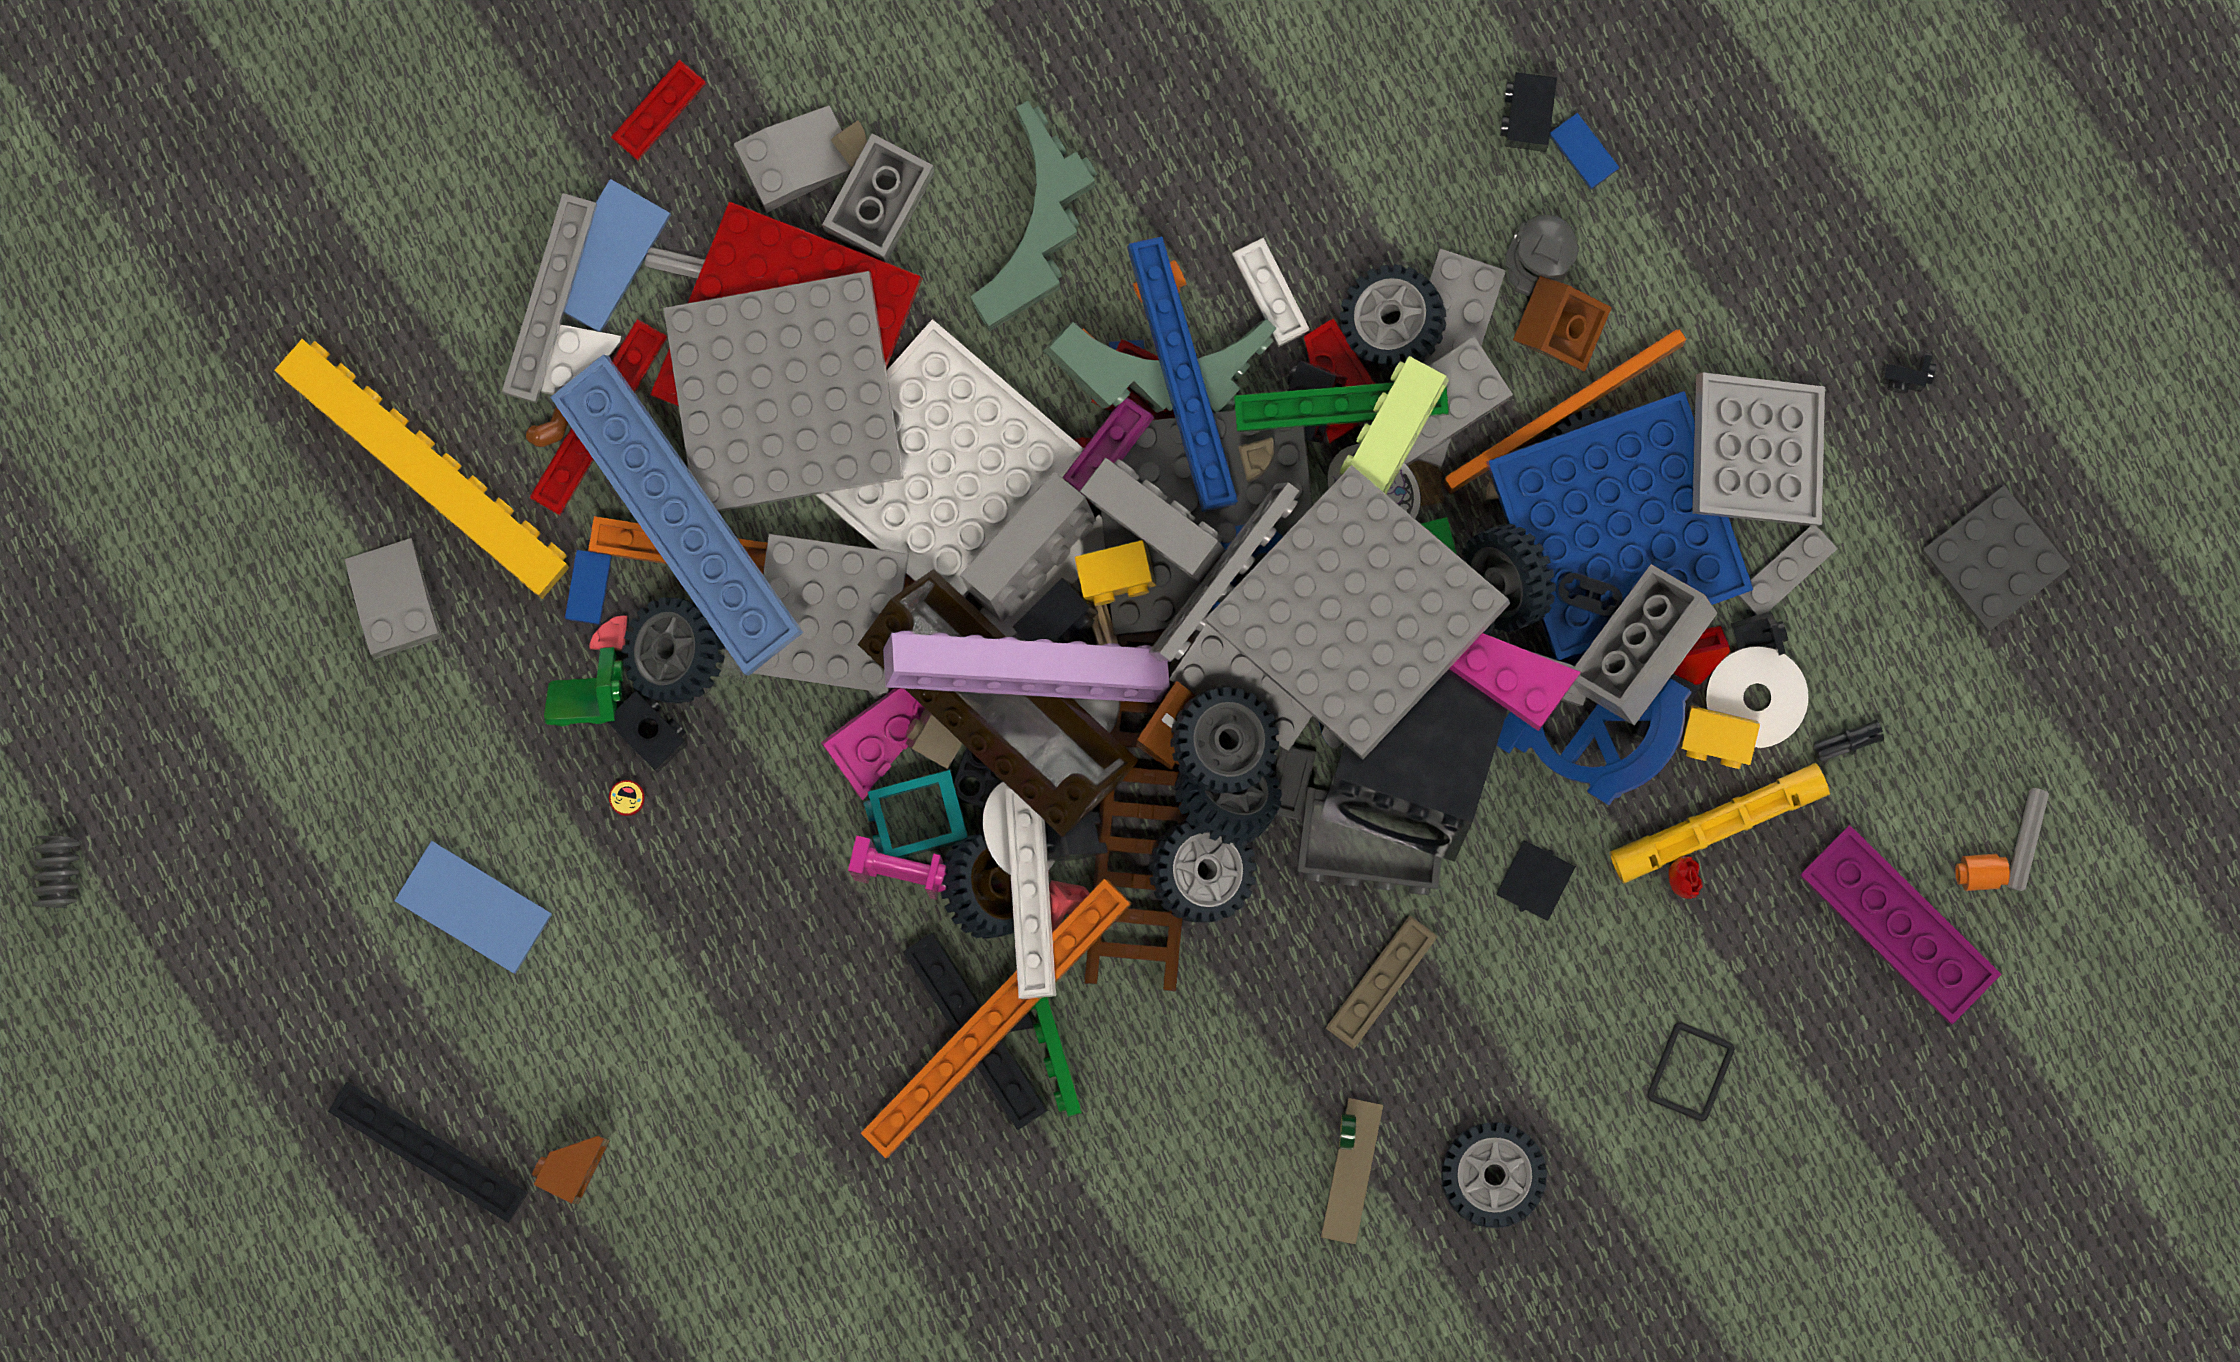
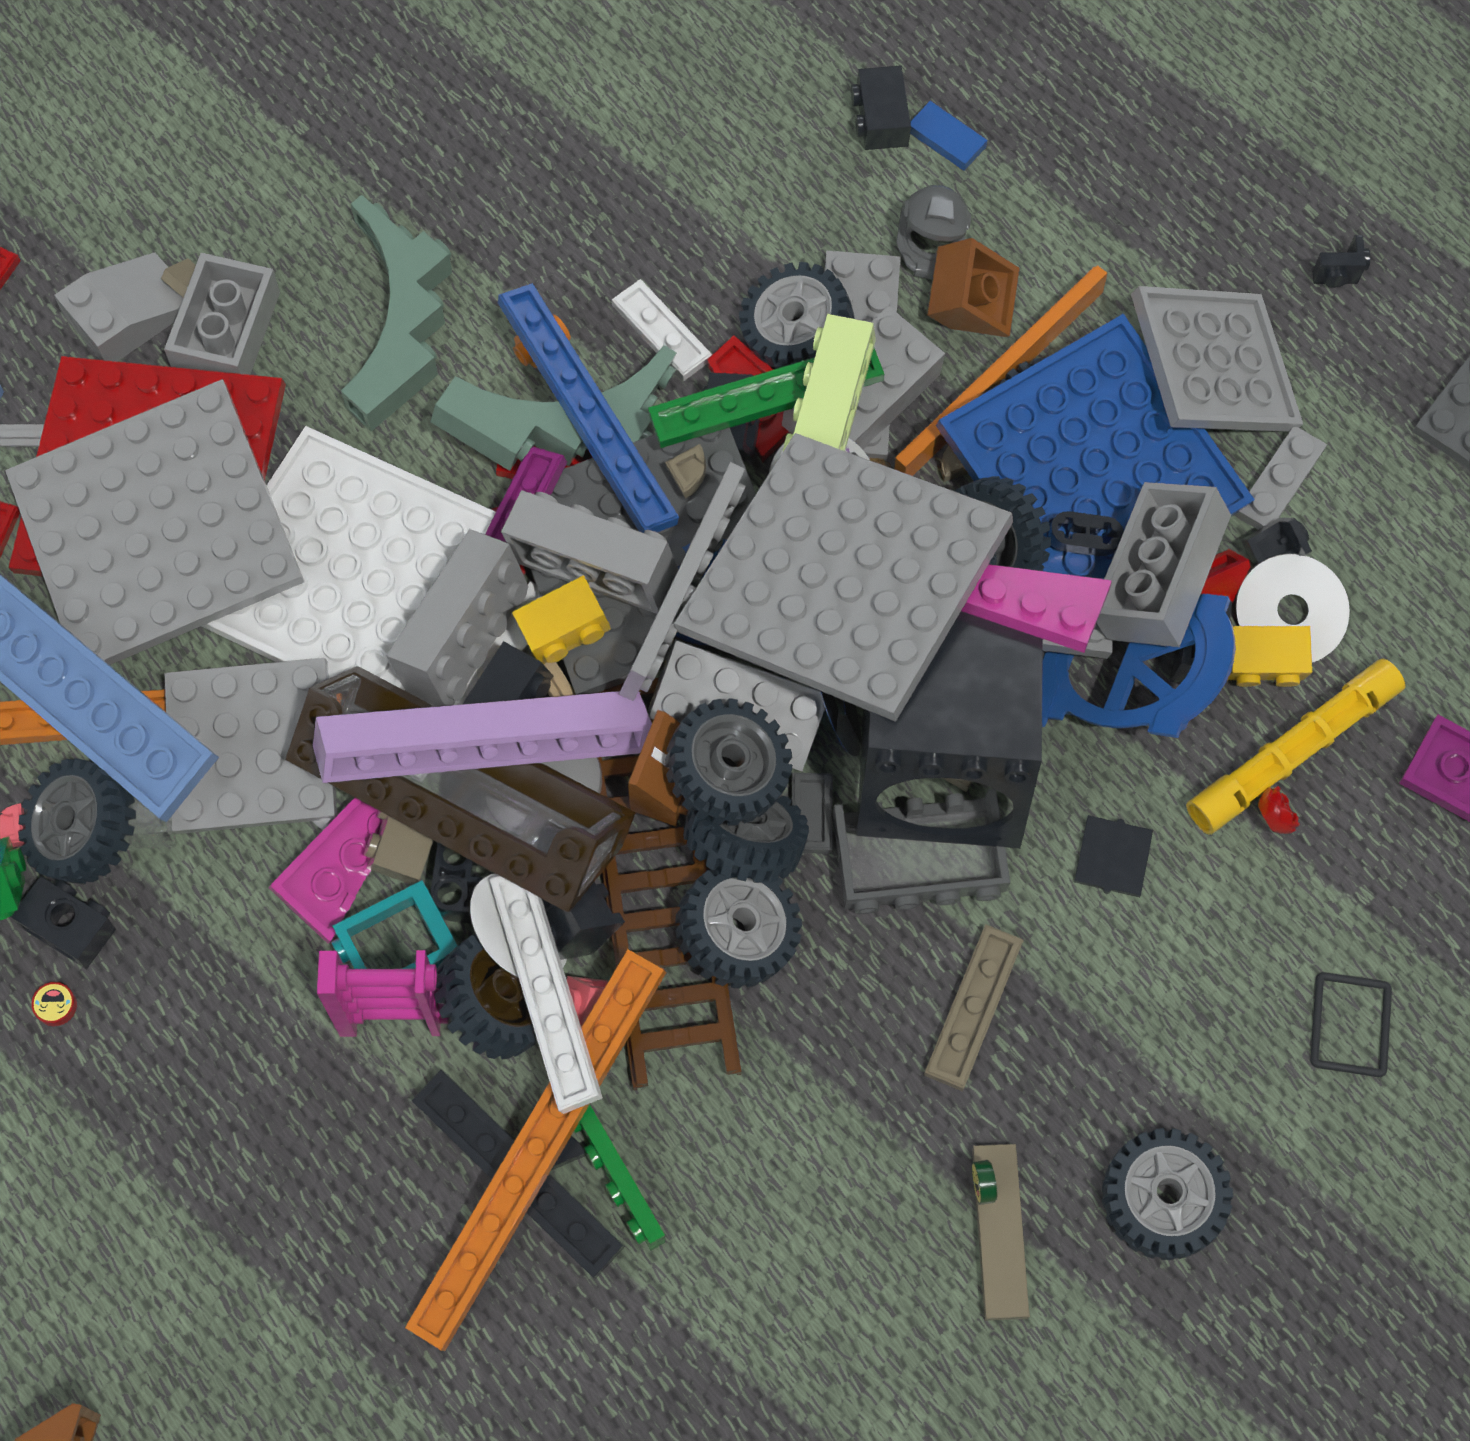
camera: 15 degrees left, 15 degrees down
(1848, 741) = (1405, 631): black axle -> none

